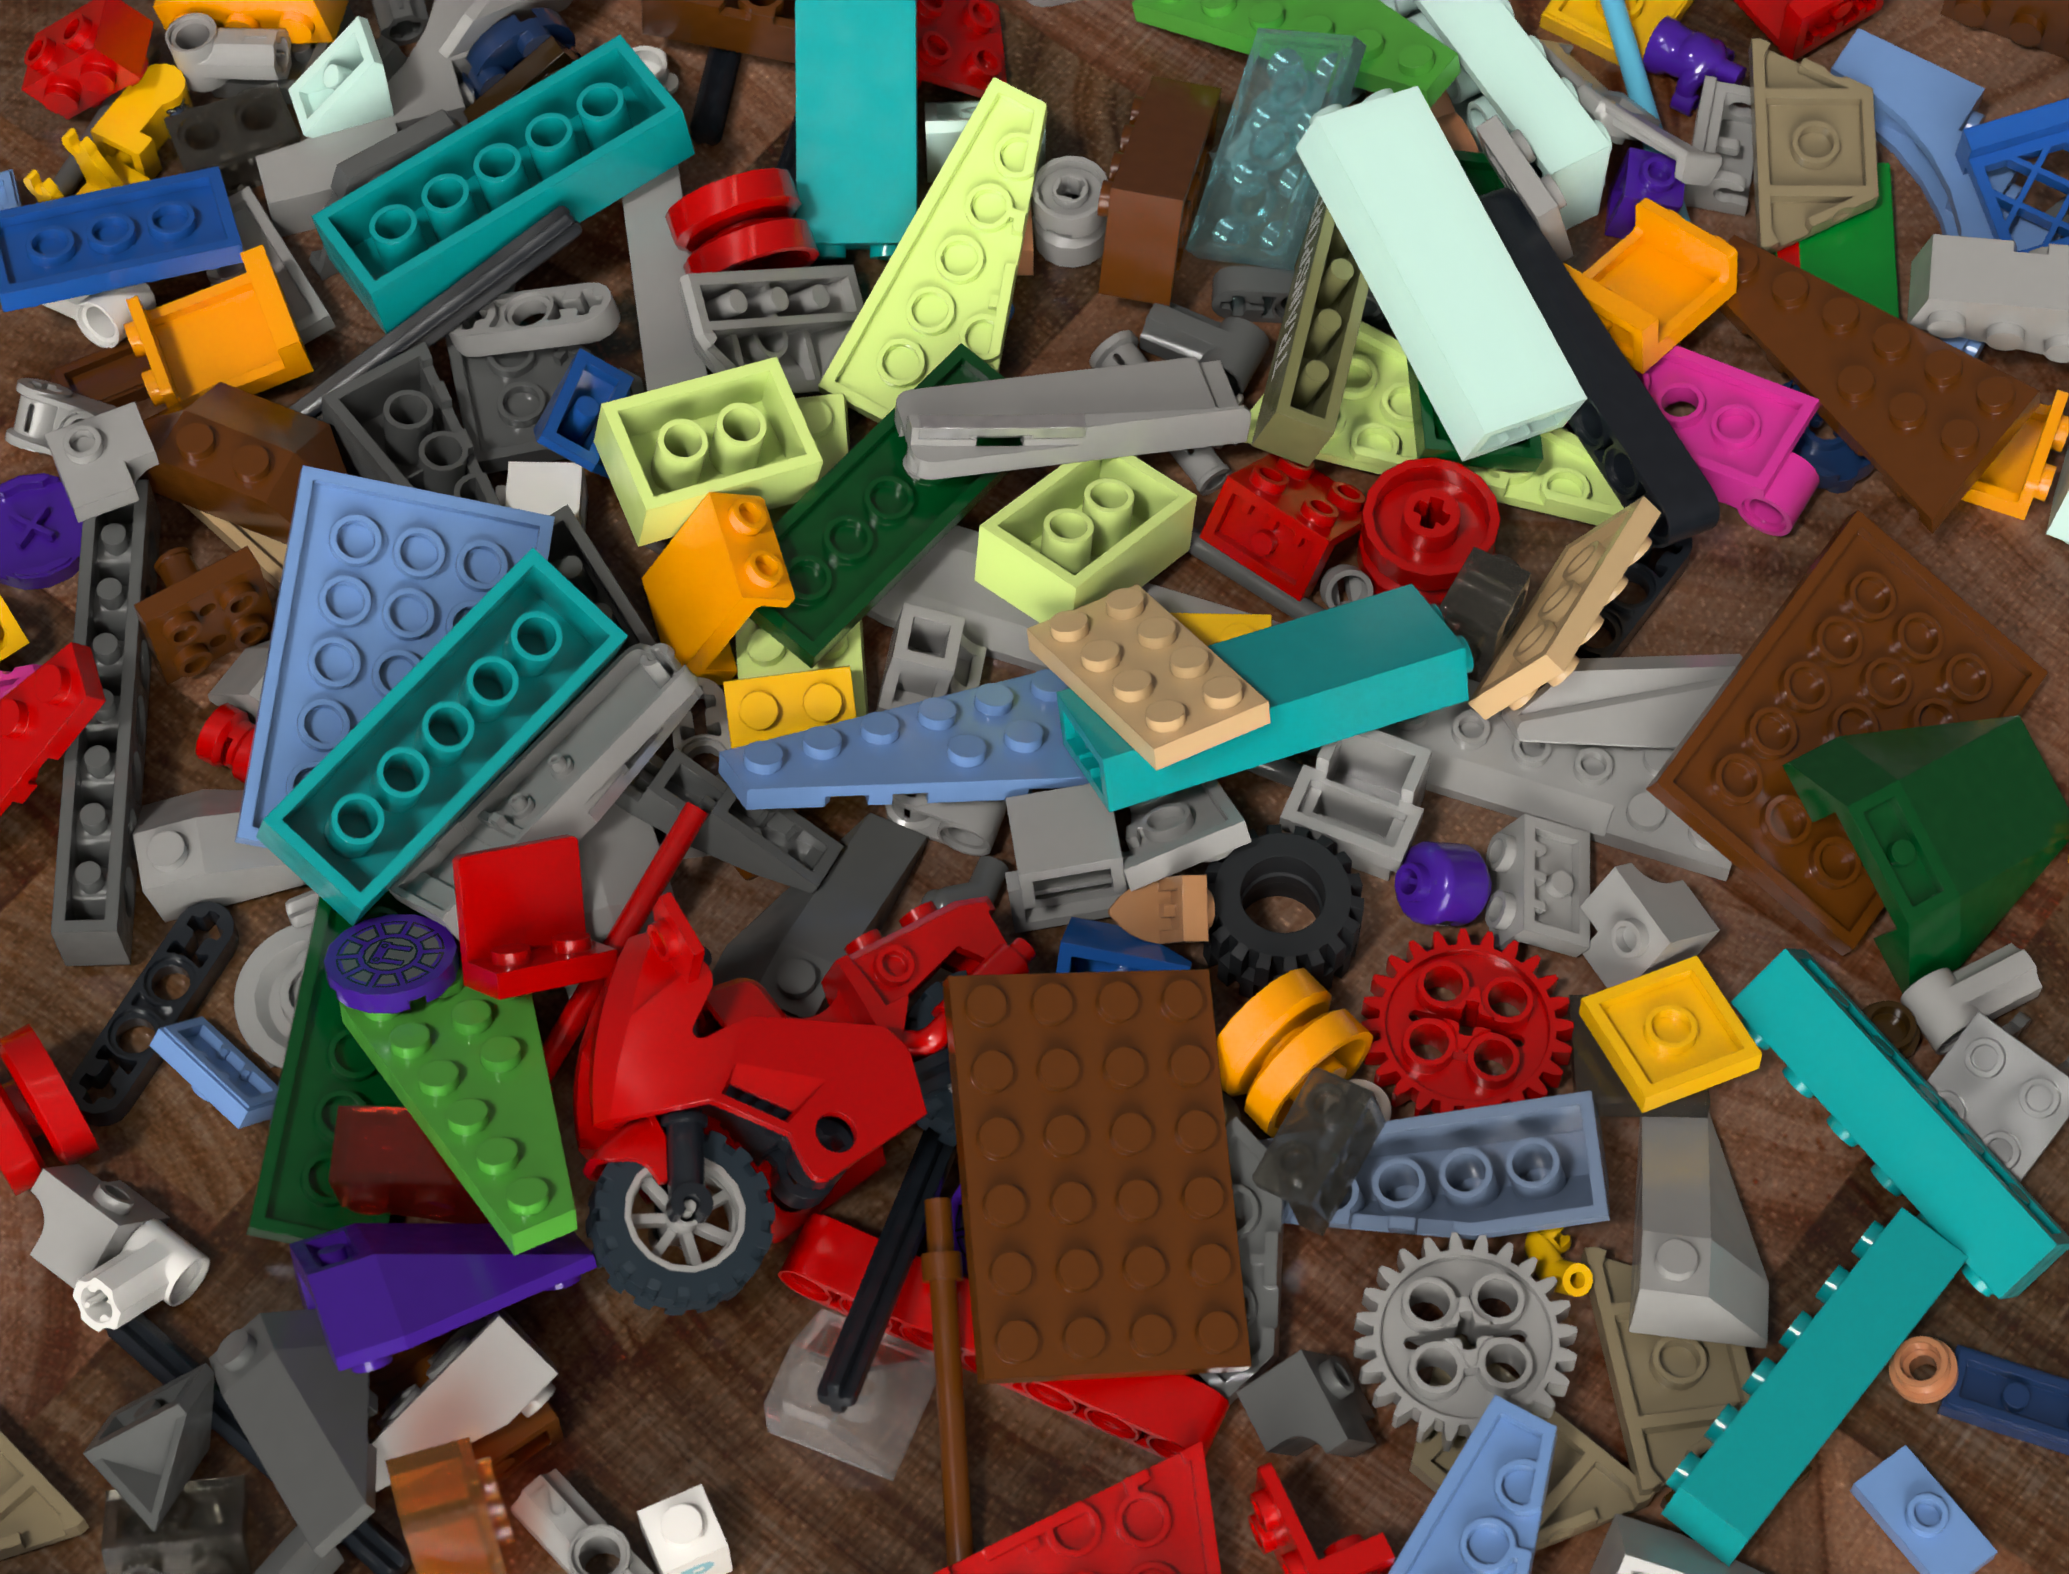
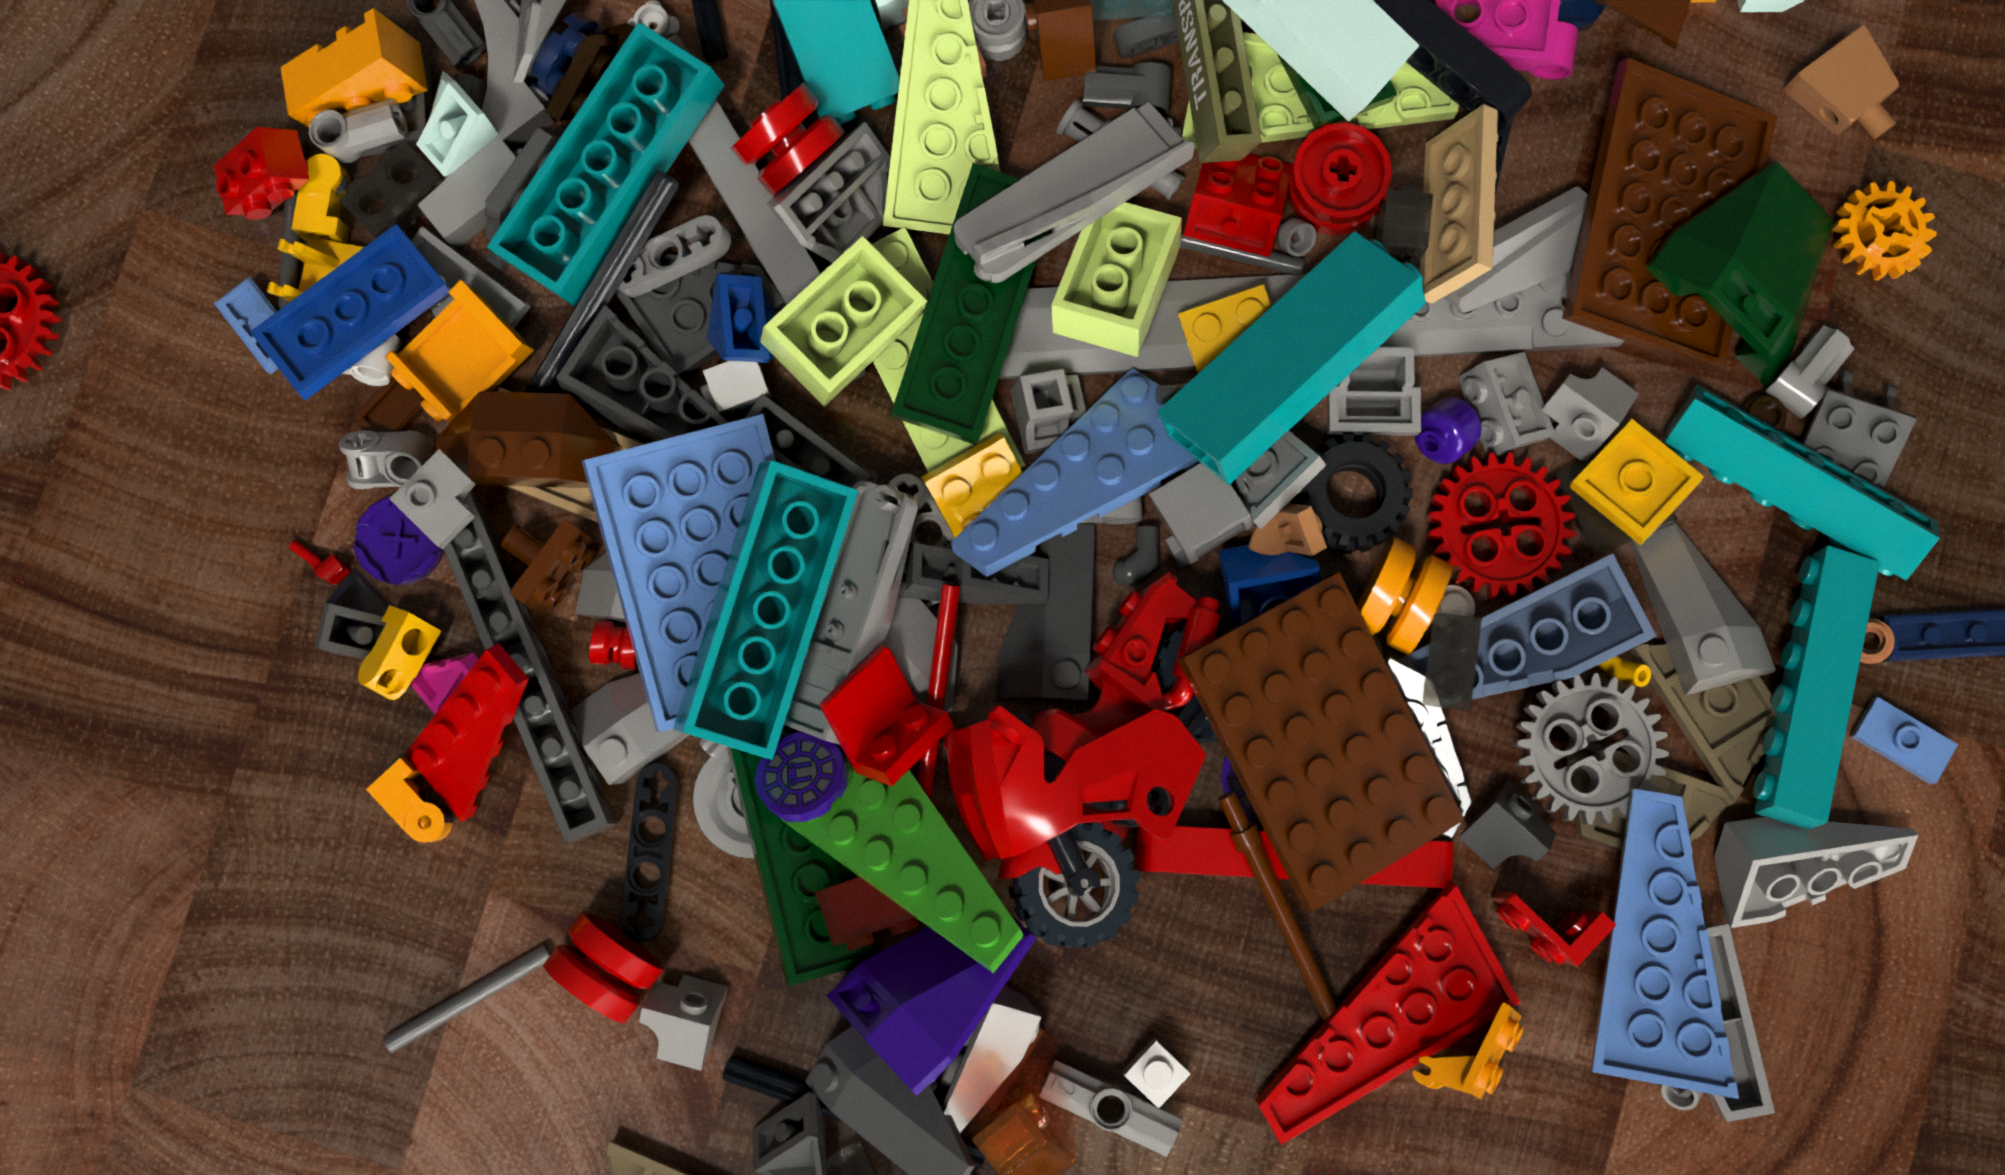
camera: 15 degrees left, 20 degrees up
(150, 1268) = (735, 1032): white piece -> none
(217, 1070) = (713, 879): medium blue plate -> none
(714, 579) = (888, 412): light orange panel -> none
(882, 1421) = (1214, 925): clear slope -> none
(885, 1275) = (1216, 869): black axle -> none
(1148, 676) = (1217, 380): tan plate -> none

